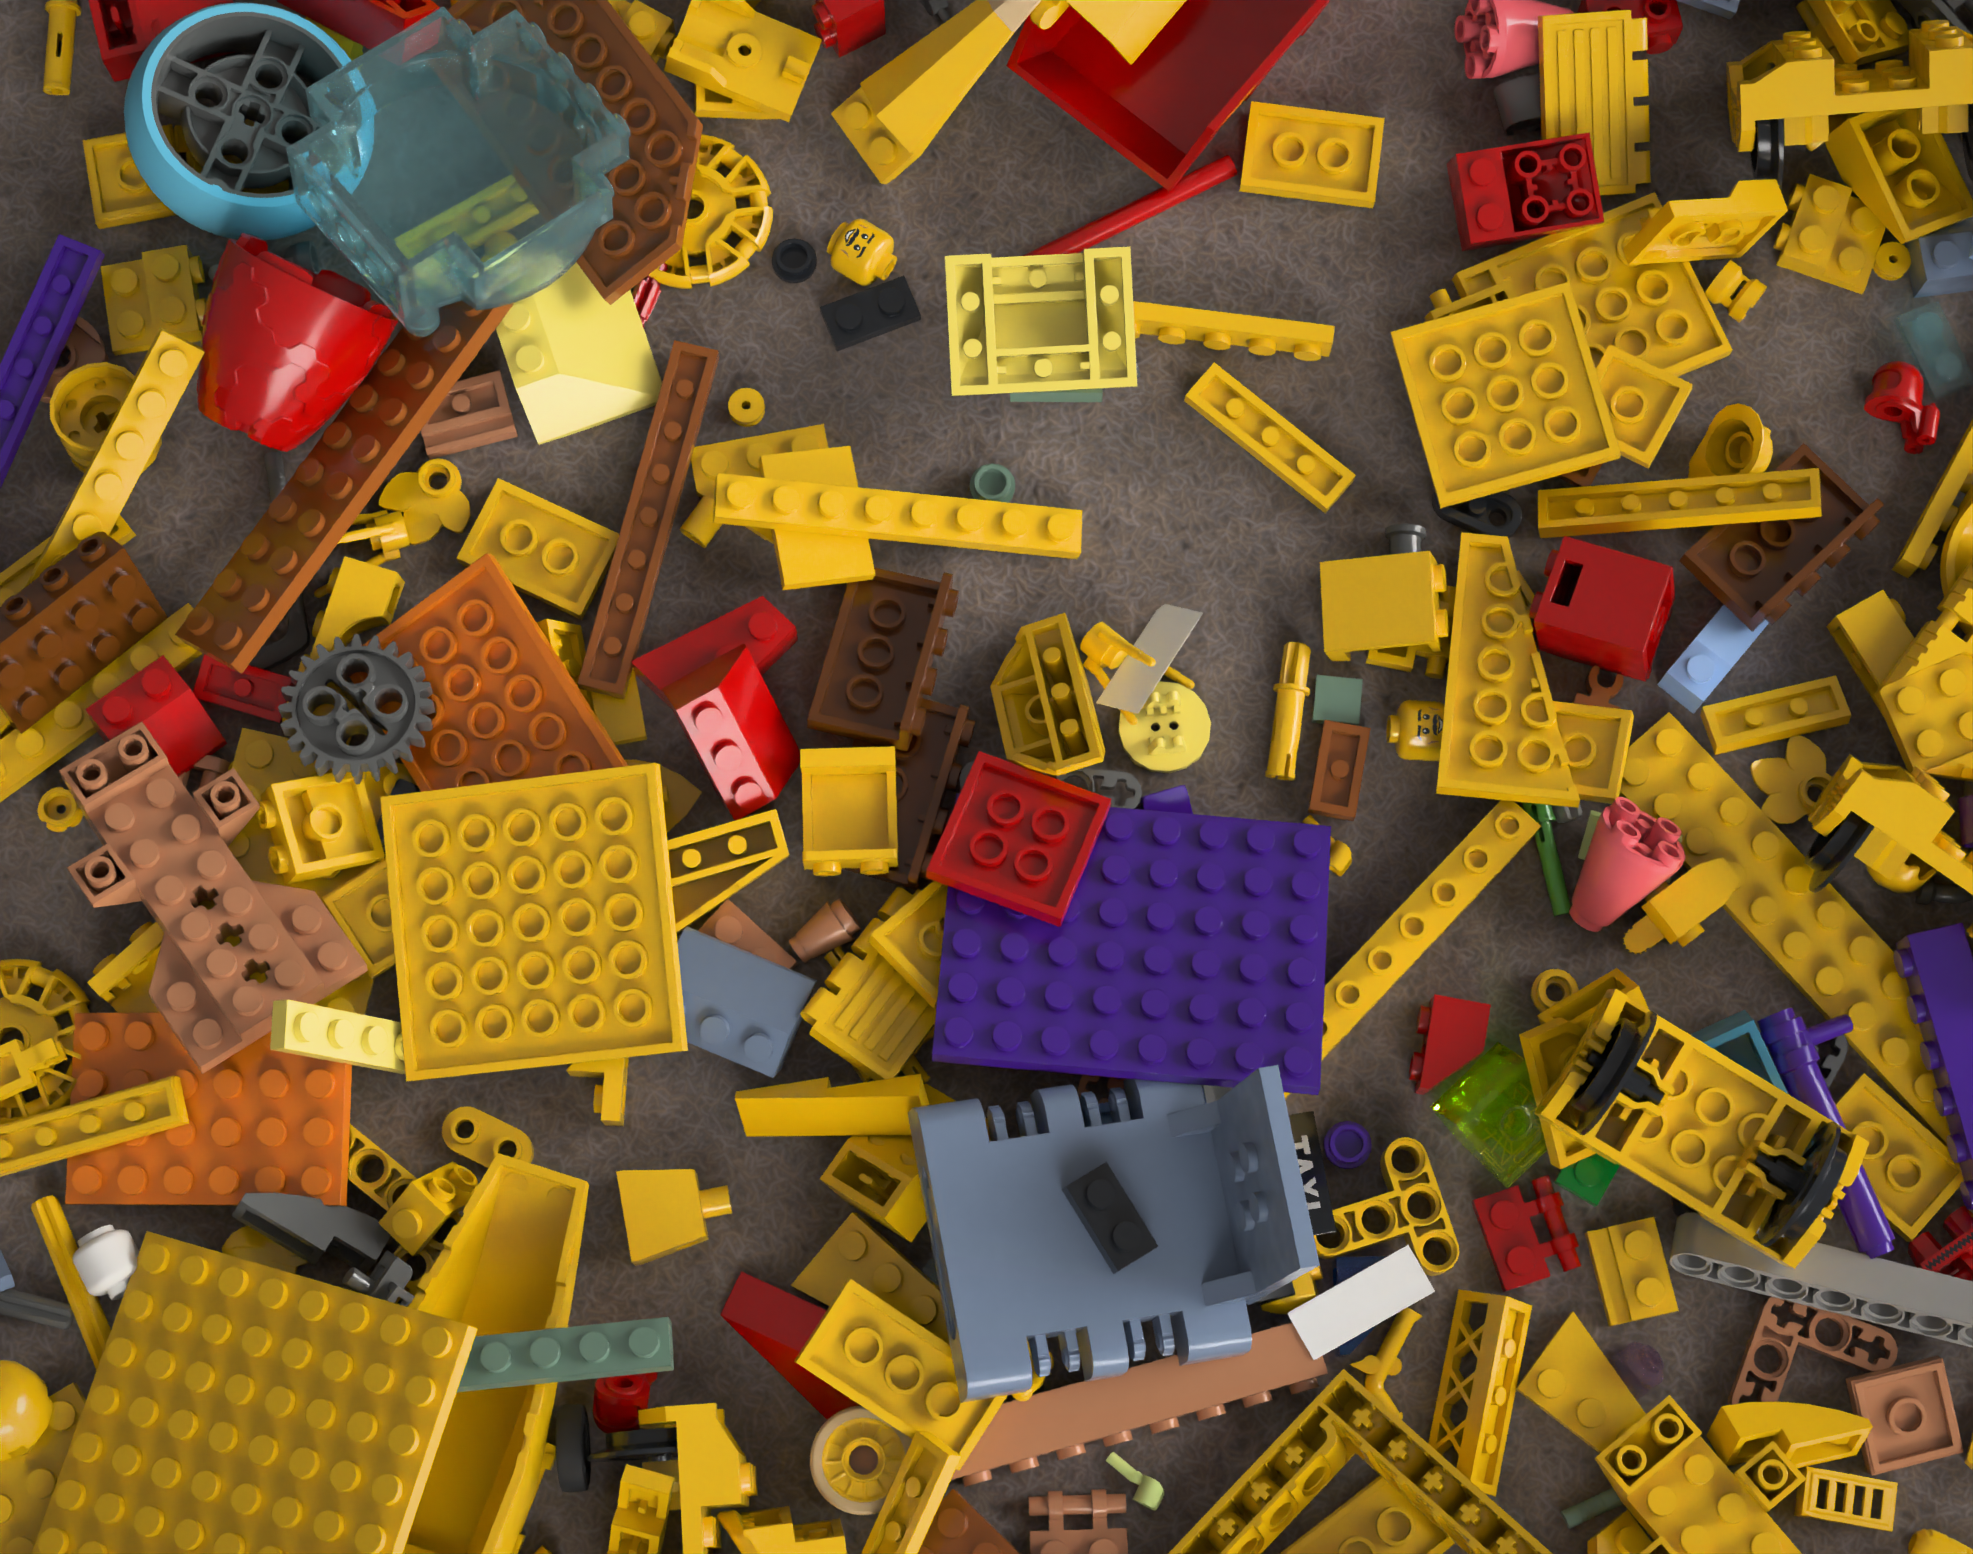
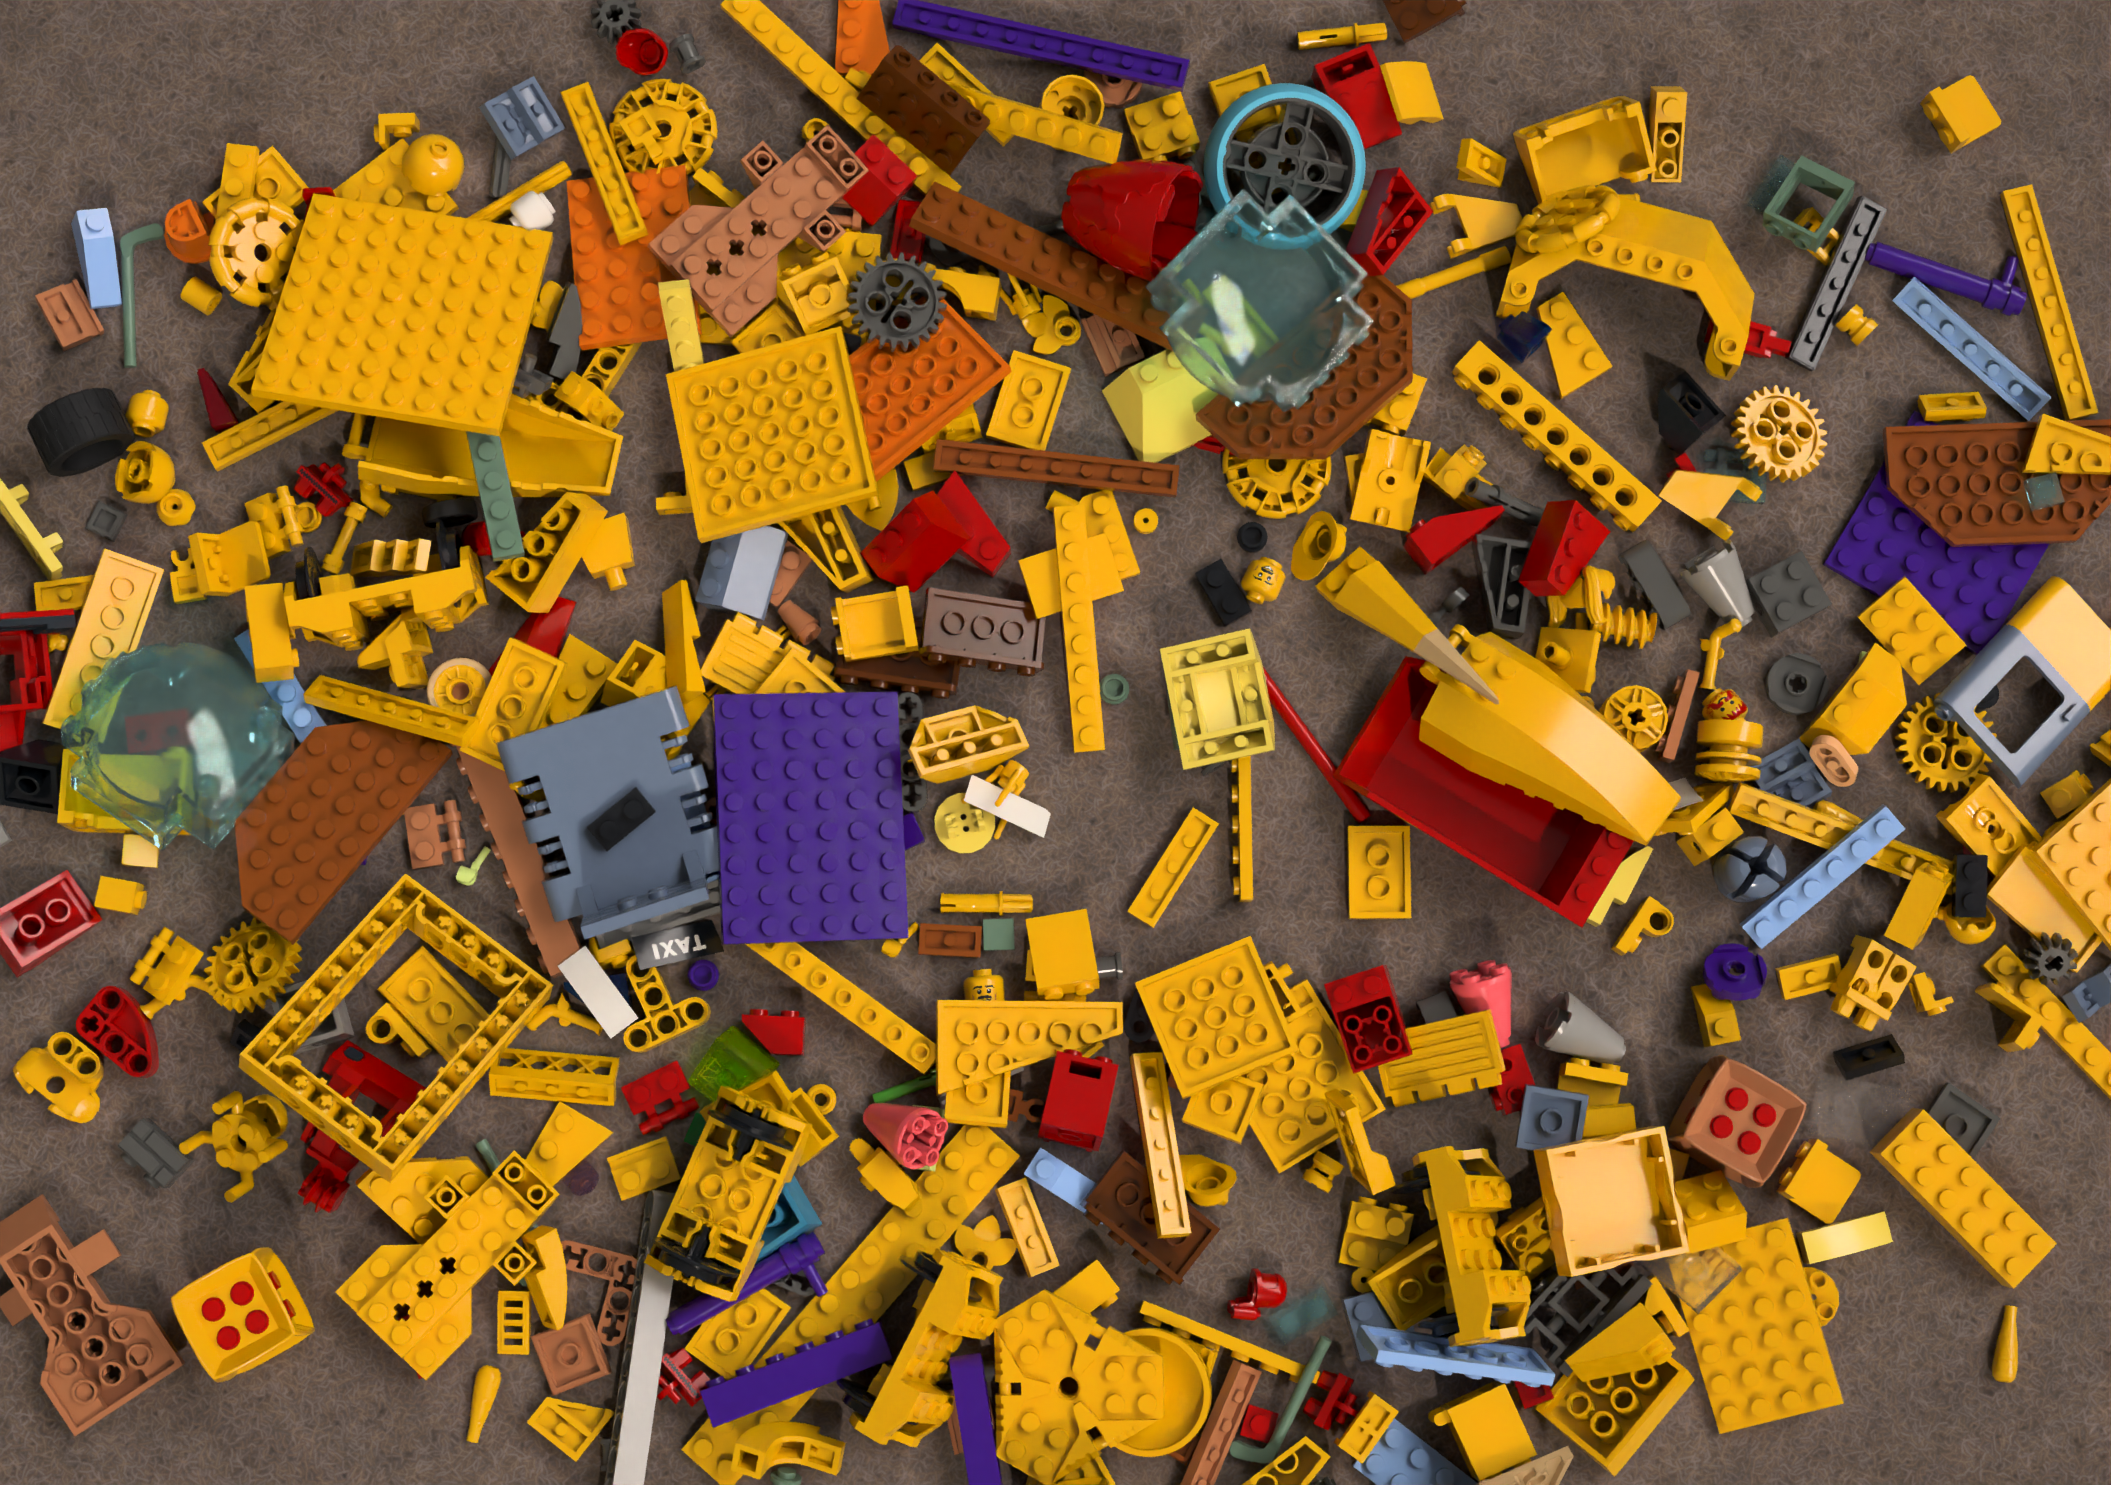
camera: 80 degrees right, 5 degrees up
(487, 1137) = (639, 431): yellow plate -> none
(664, 1281) = (550, 553): none -> yellow wedge
(824, 169) = (1319, 543): none -> yellow piece
(1019, 838) = (865, 732): red plate -> none

